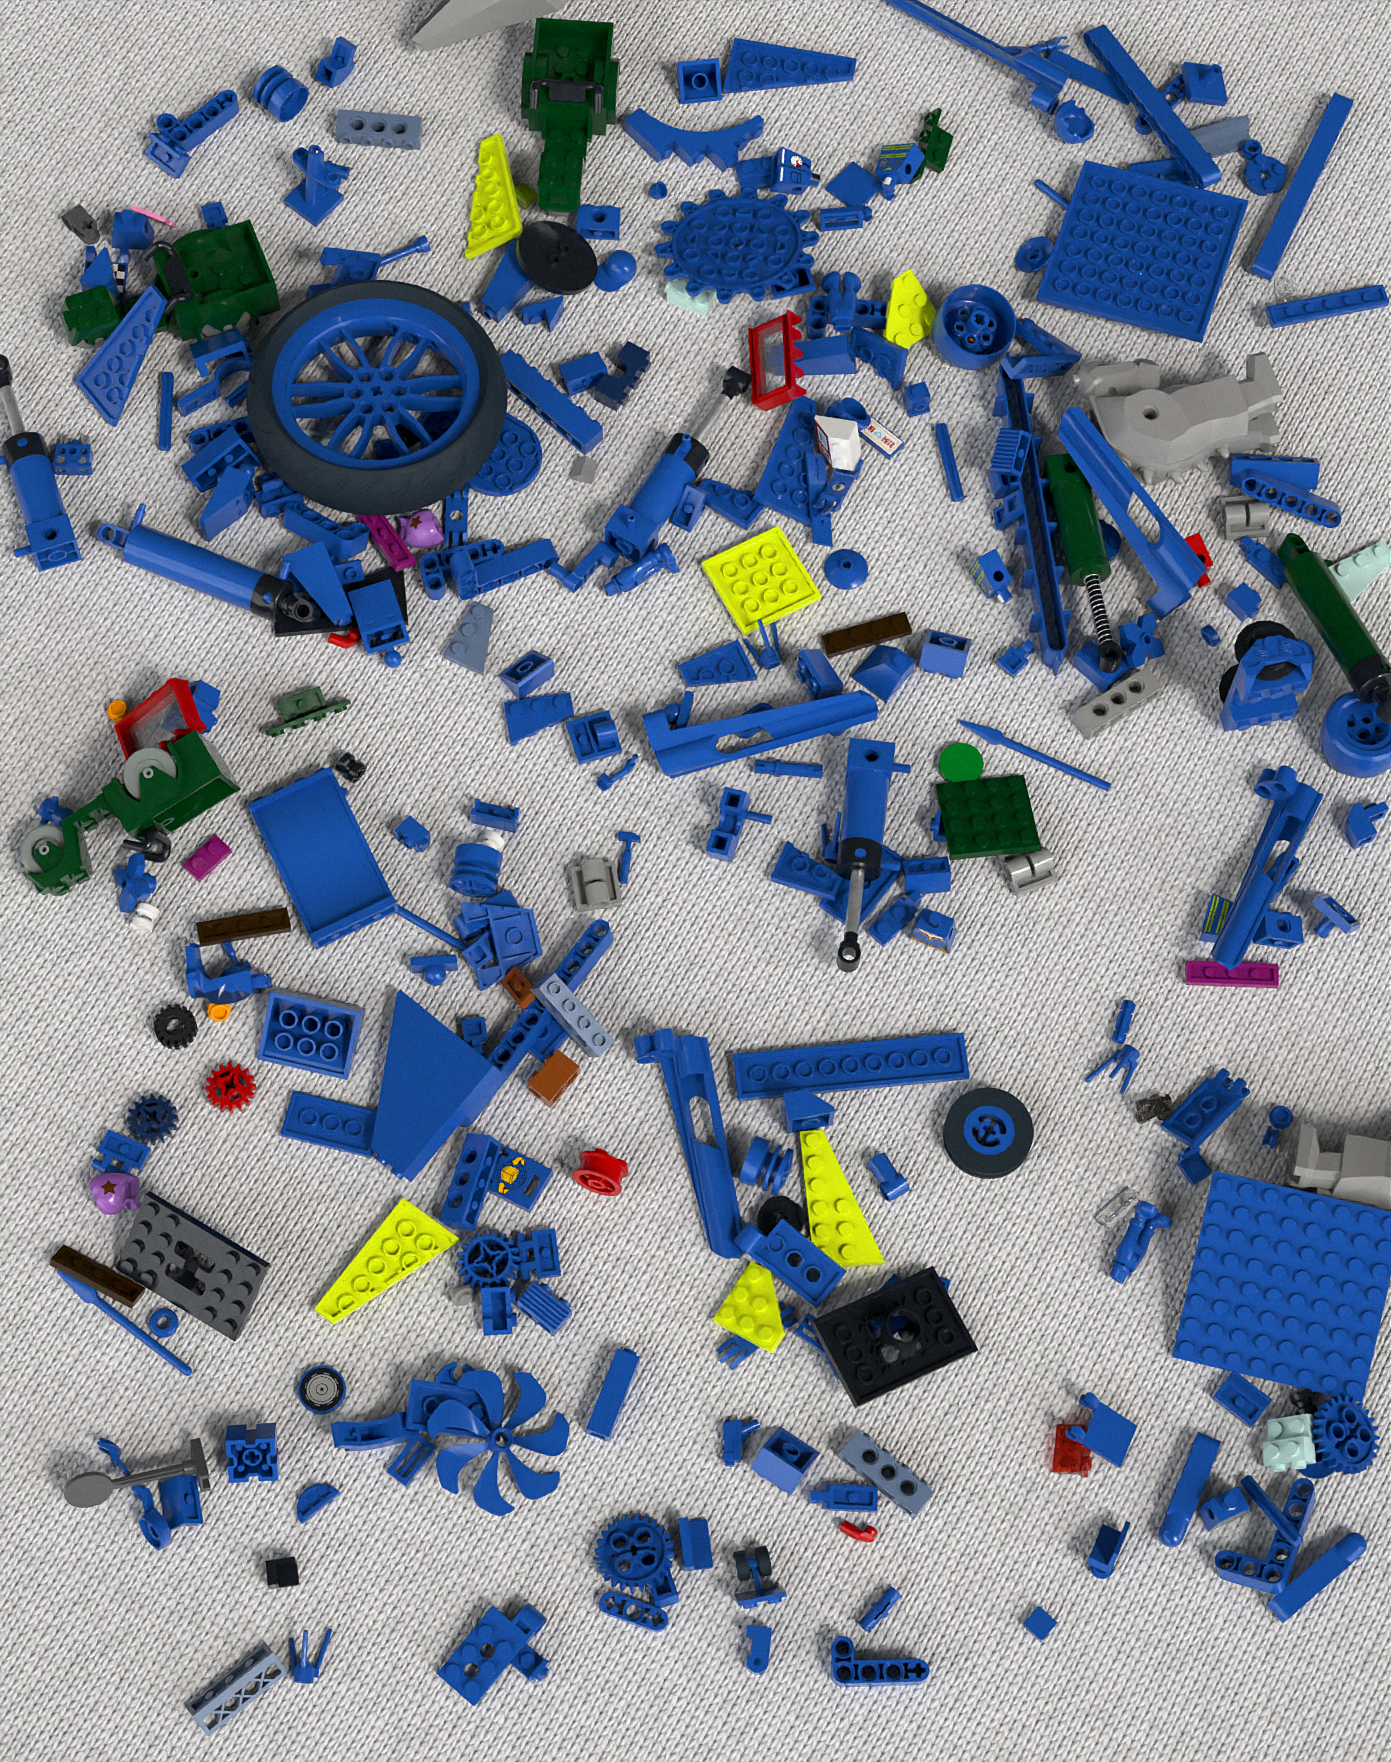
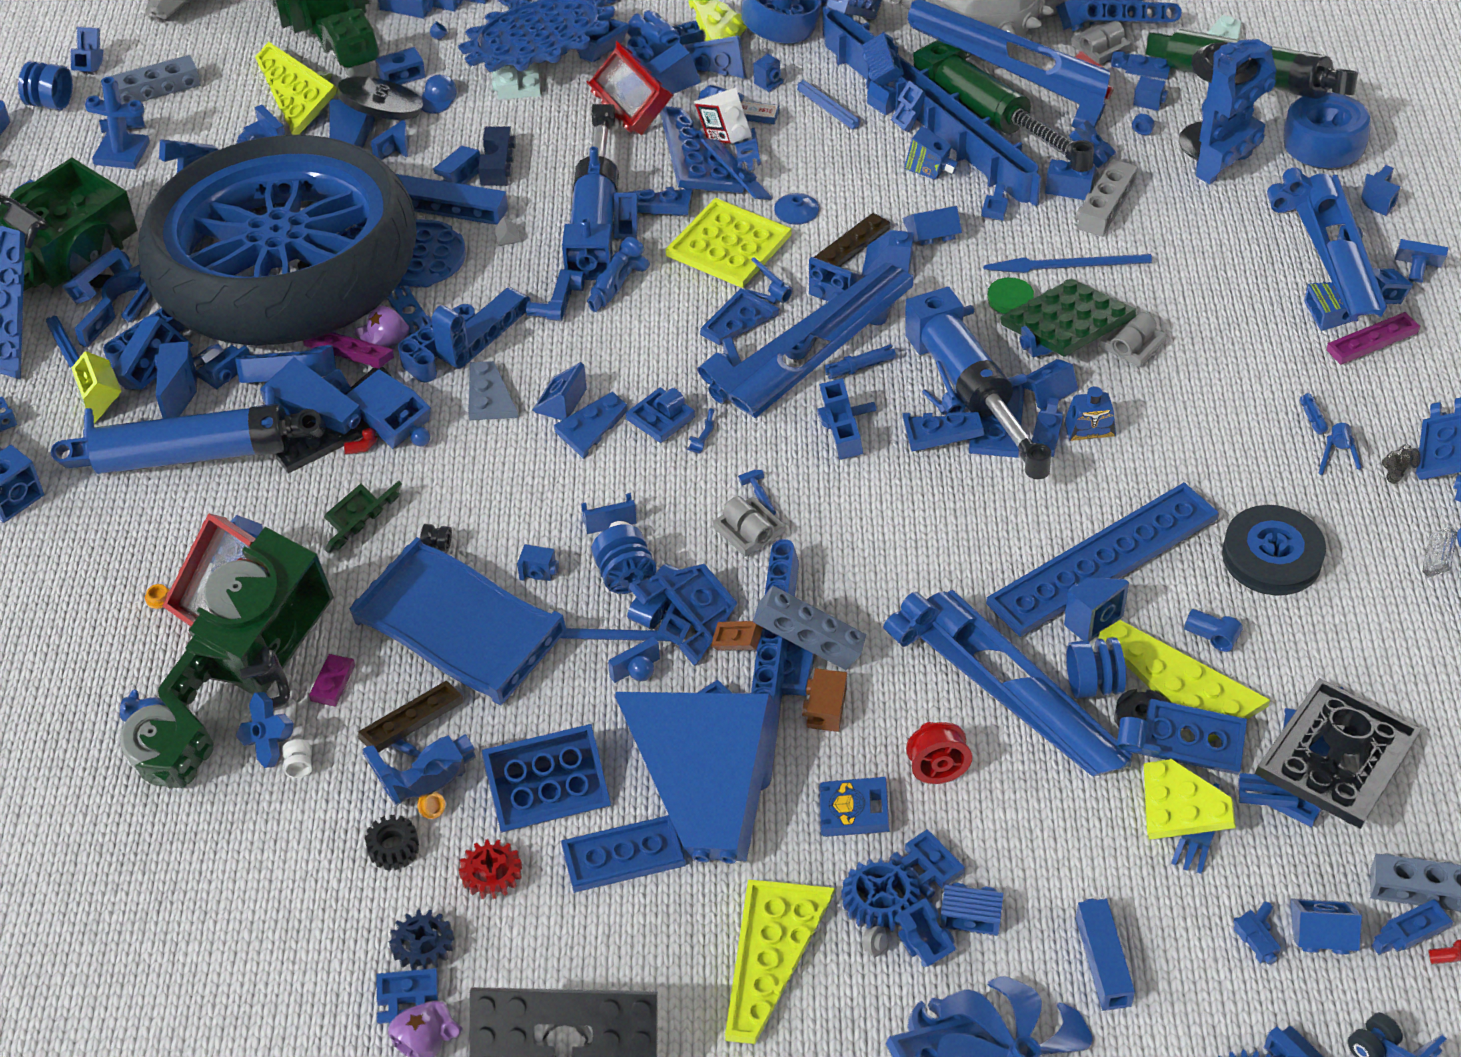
camera: 25 degrees left, 20 degrees down
(164, 474) = (95, 383): none -> neon yellow slope
(443, 241) = (266, 124): none -> blue panel
(470, 1182) = (809, 829): blue brick -> none

